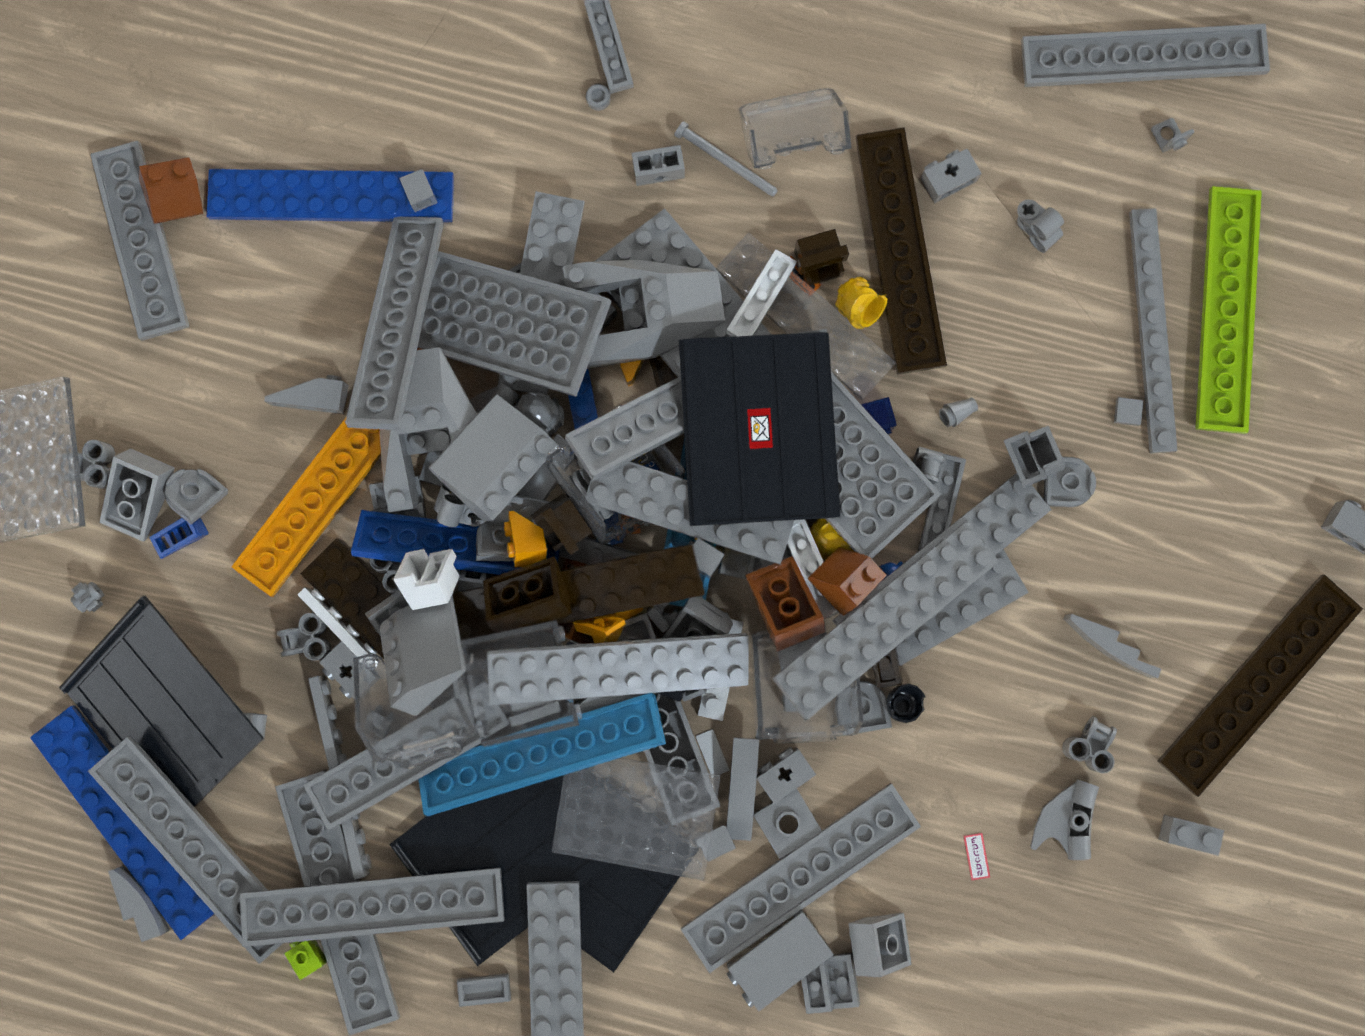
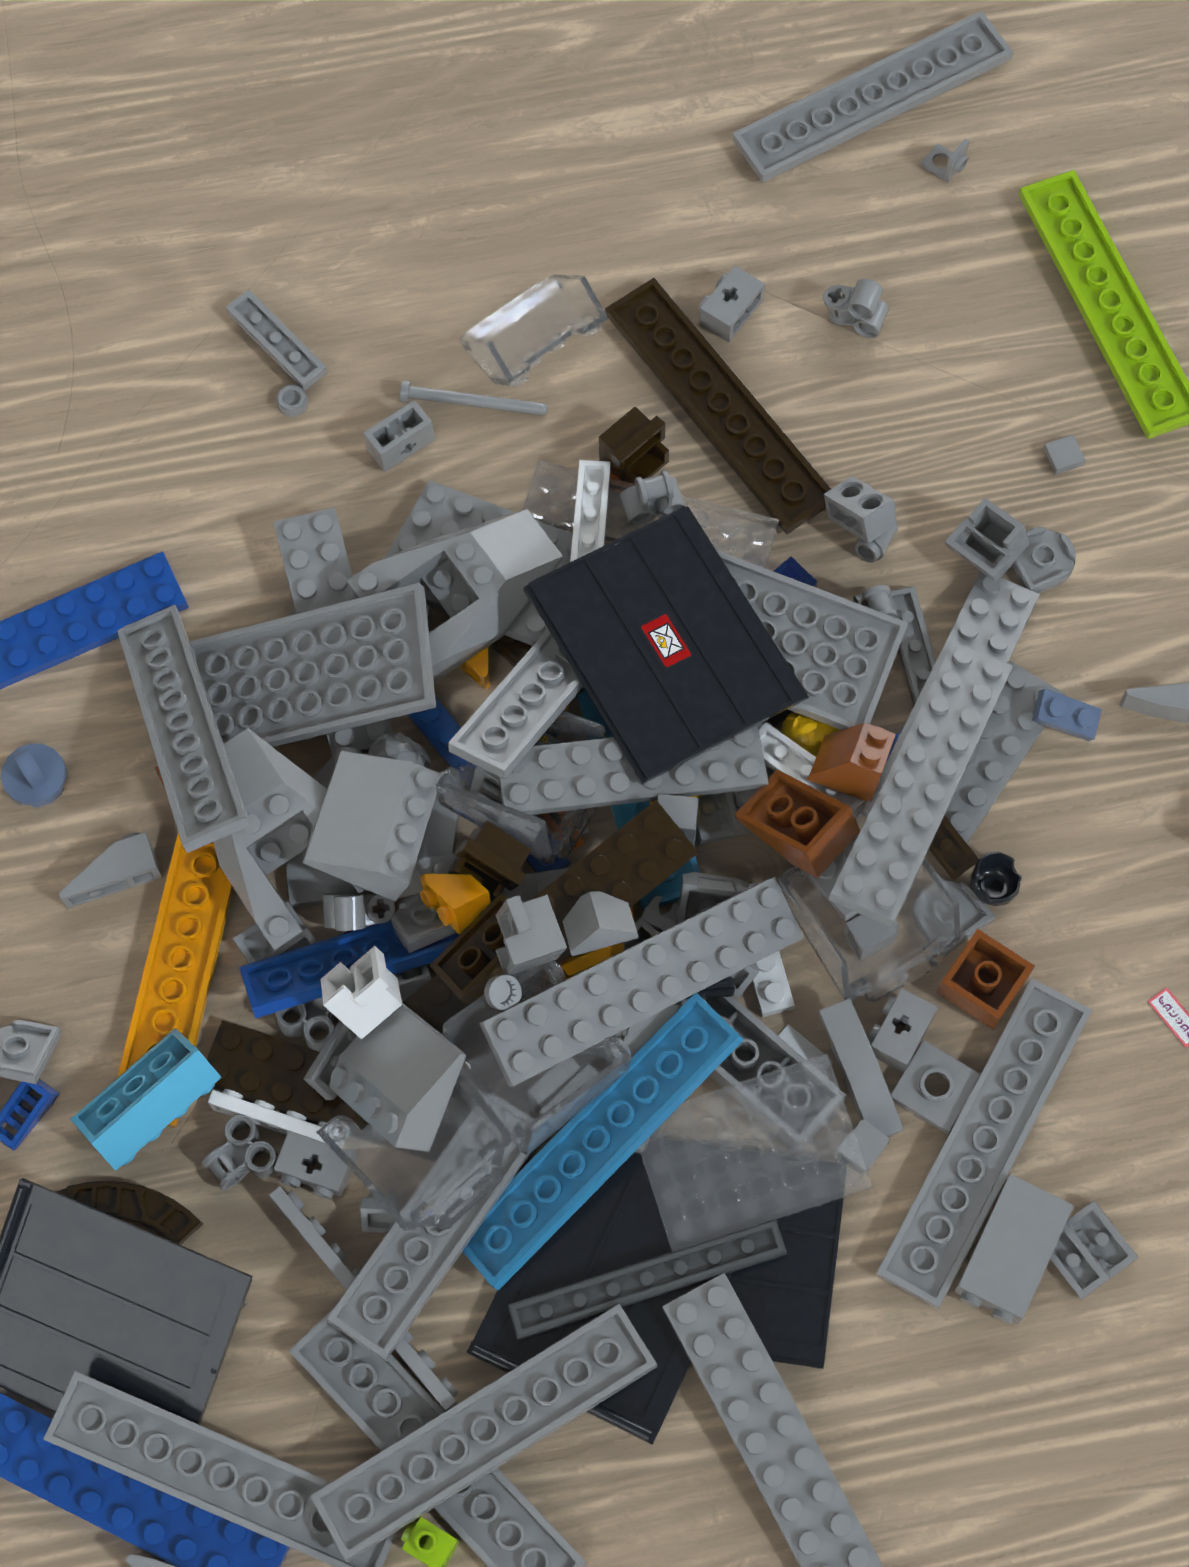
camera: 25 degrees left, 15 degrees down
(217, 629) = (138, 1205): none -> dark brown tile
(256, 572) = (146, 1099): none -> medium azure slope
(290, 297) = (34, 775): none -> sand blue tile
(418, 190) = (134, 583): light grey panel -> none
(484, 990) = (674, 1475): light grey tile -> none
(512, 638) = (502, 992): none -> light grey tile
(526, 859) = (646, 1279): none -> dark grey tile
(549, 611) = (529, 934): none -> light grey plate
(608, 613) = (598, 922): none -> light grey slope
(812, 306) = (651, 498): none -> light grey piece
(859, 770) = (985, 979): none -> dark orange brick
(860, 302) = (700, 477): yellow helmet -> none
(879, 945) = (1120, 1171): light grey slope -> none
(957, 385) = (860, 509): none -> light grey brick
(1020, 609) = (1066, 714): none -> sand blue plate
(1153, 331) = (1043, 363): light grey plate -> none

